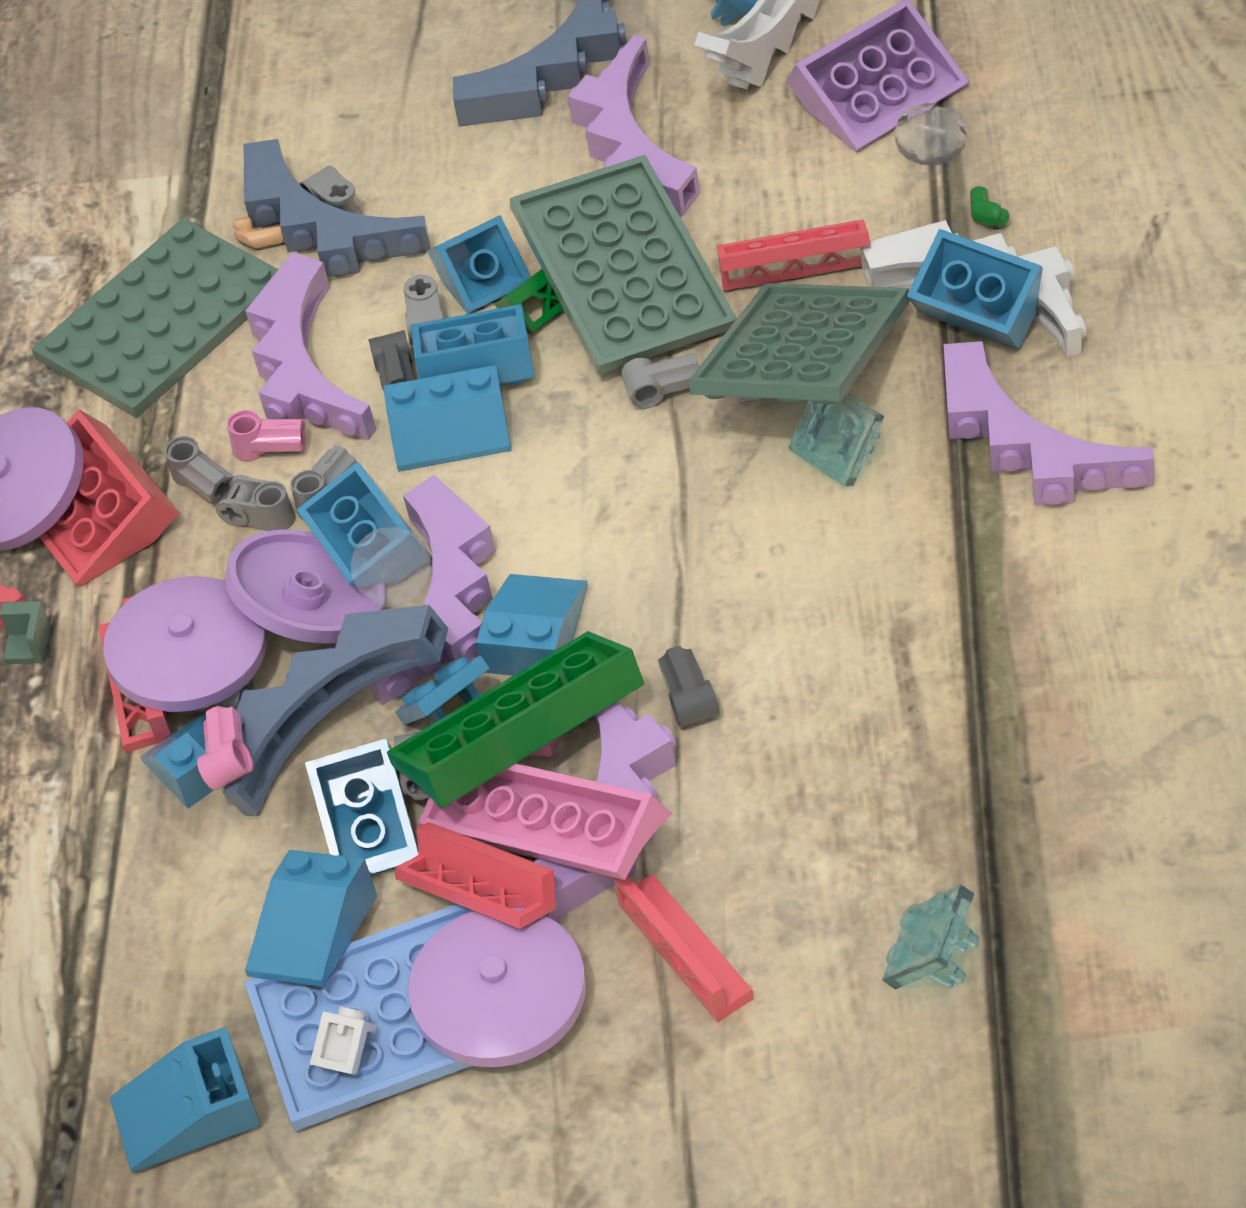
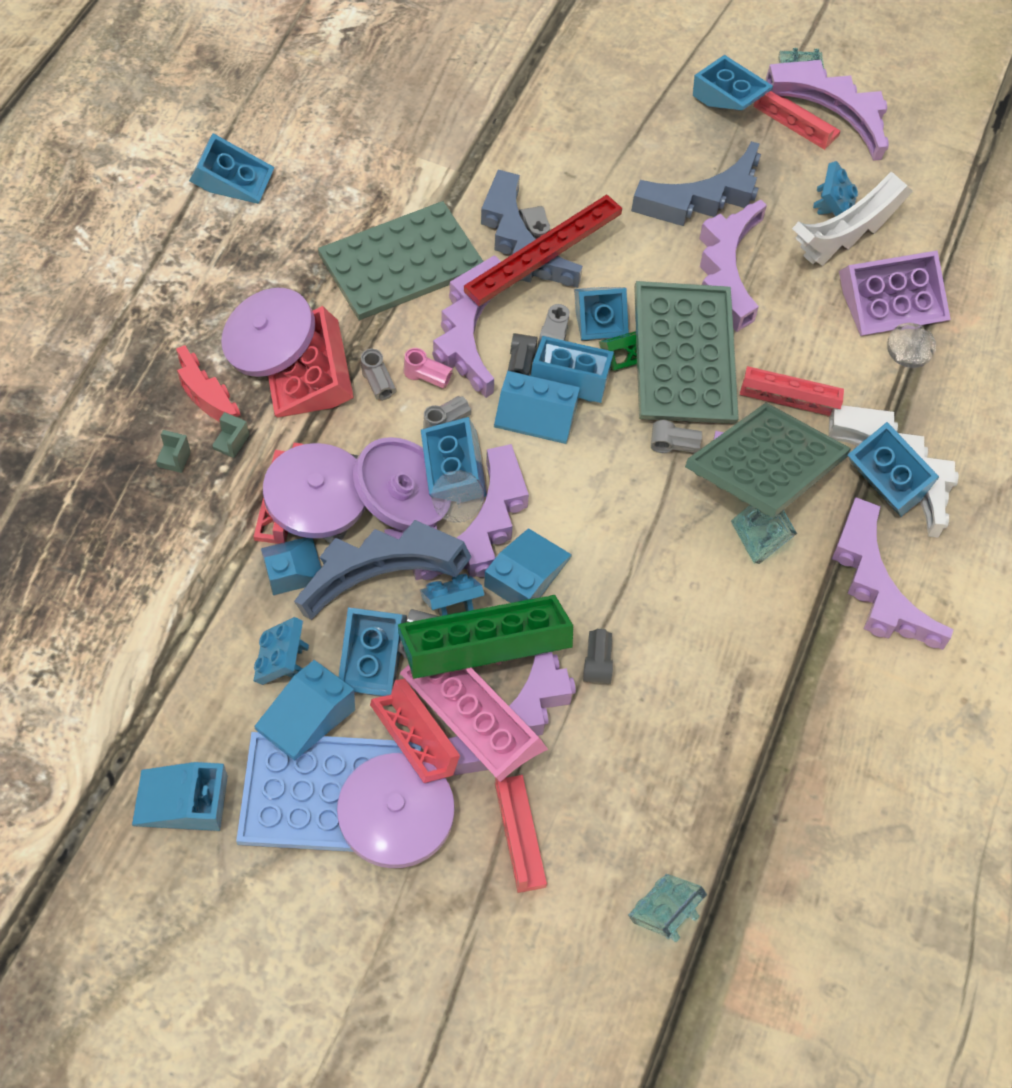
camera: 10 degrees right, 10 degrees up
(225, 753) = (305, 579): bright pink piece -> none
(234, 864) = (279, 651): none -> dark azure plate
(254, 237) = (479, 232): light nougat arm -> none
(258, 502) = (401, 413): light grey piece -> none
(341, 1040) = (288, 804): white bracket -> none
(358, 217) = (542, 250): none -> red plate
(985, 211) = (922, 414): green arm -> none

